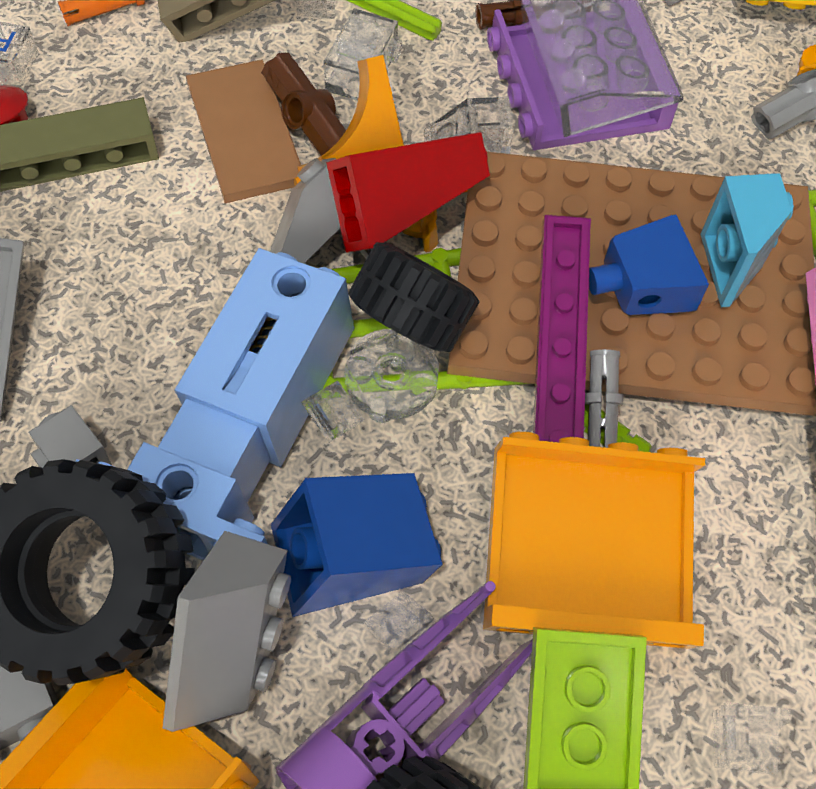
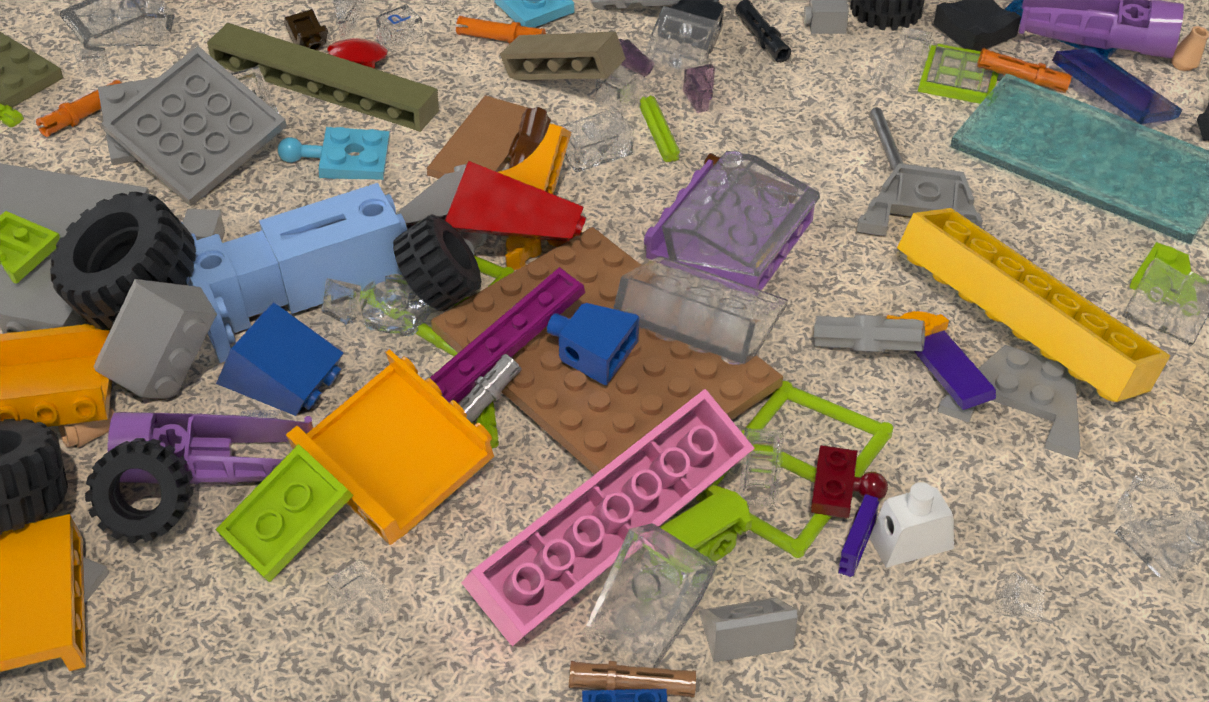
camera: 45 degrees right, 15 degrees down
(110, 252) = (335, 157): none -> medium azure plate
(475, 115) = (614, 218): clear slope -> none
(683, 162) = (699, 309): none -> clear slope
(744, 230) = (665, 352): medium azure slope -> none

